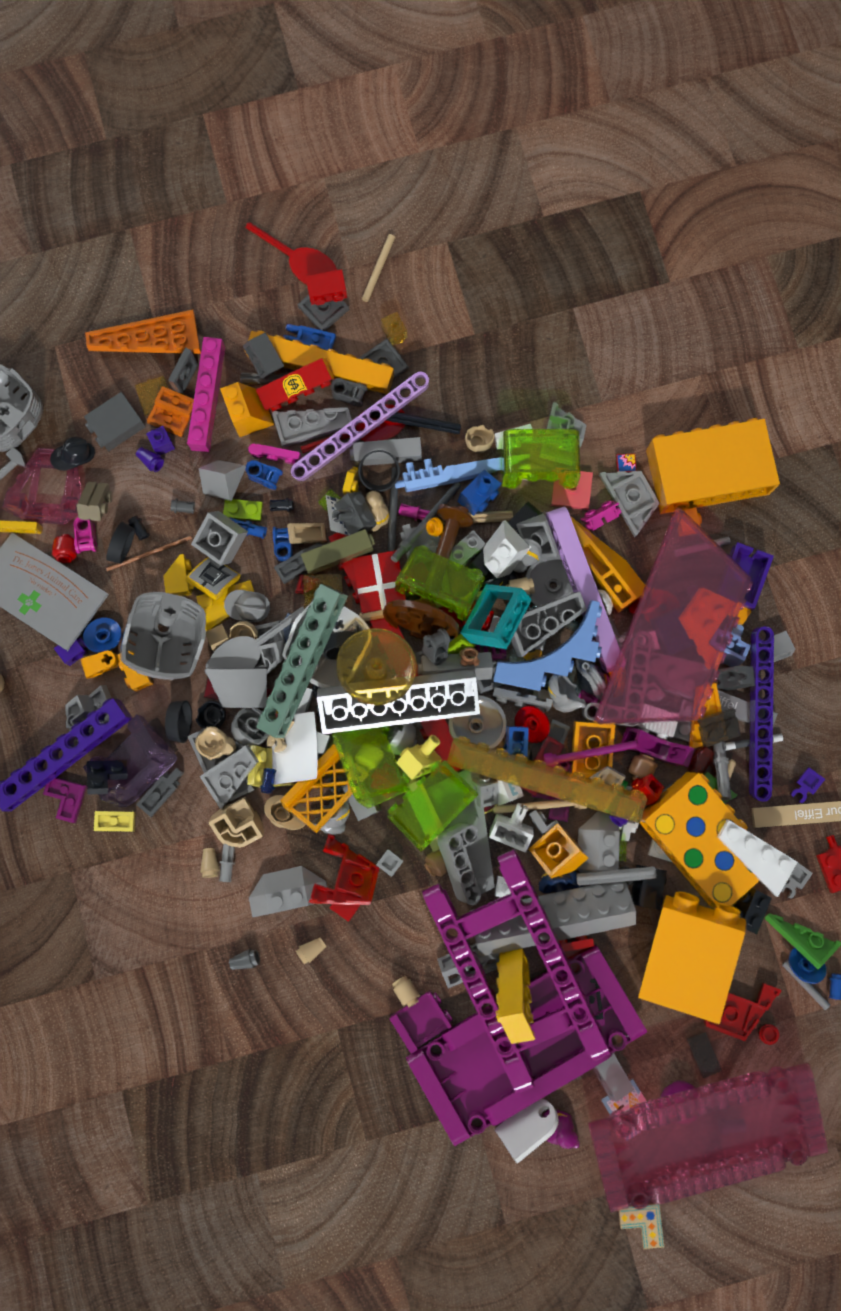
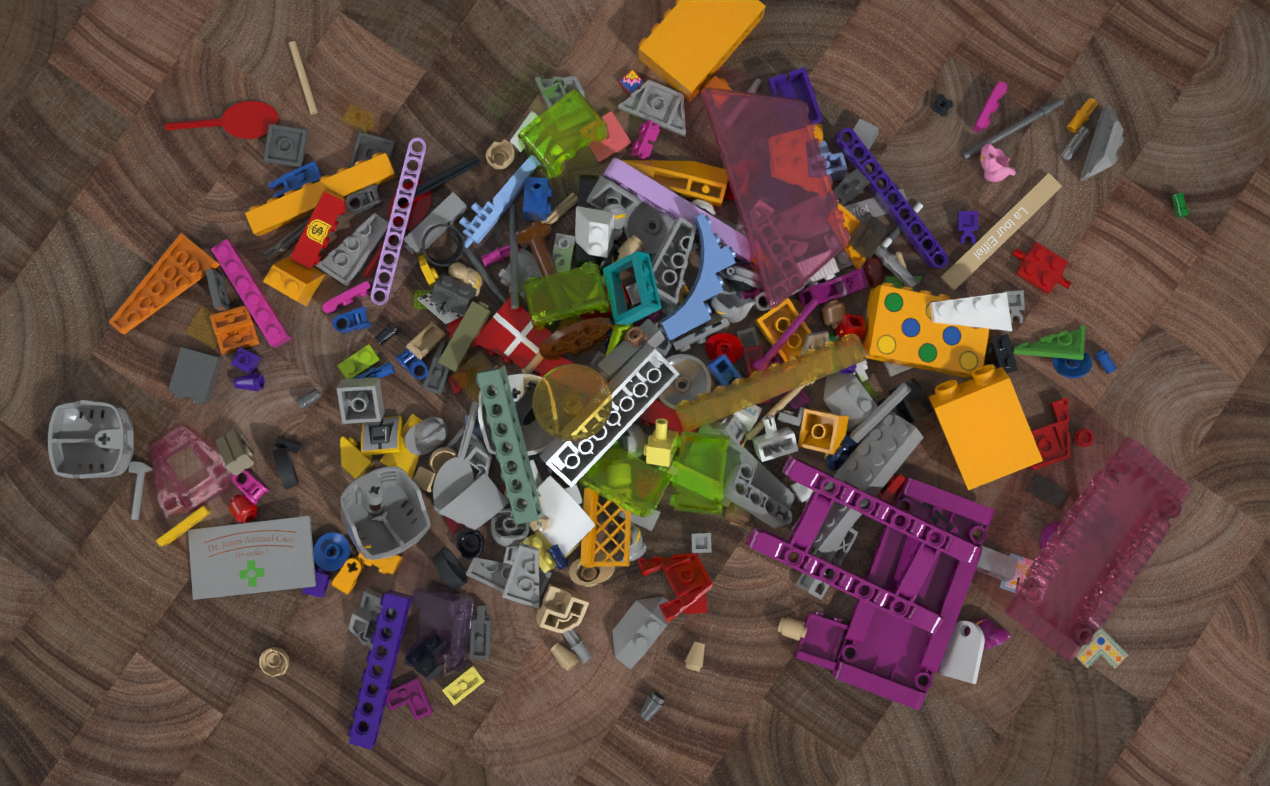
camera: 45 degrees left, 5 degrees up
(72, 454) = (183, 429): black piece -> none
(149, 553) = (313, 456): nougat piece -> none
(214, 743) = (492, 563): tan hair -> none
(221, 478) = (321, 352): light grey slope -> none
(263, 355) = (272, 226): dark grey hinge -> none
(326, 287) = (277, 129): red brick -> none
(434, 527) = (524, 255): light orange plate -> none
(436, 646) = (605, 349): dark grey piece -> none
(514, 996) = (876, 564): yellow wedge -> none
(808, 987) = (1086, 379): light grey bar -> none

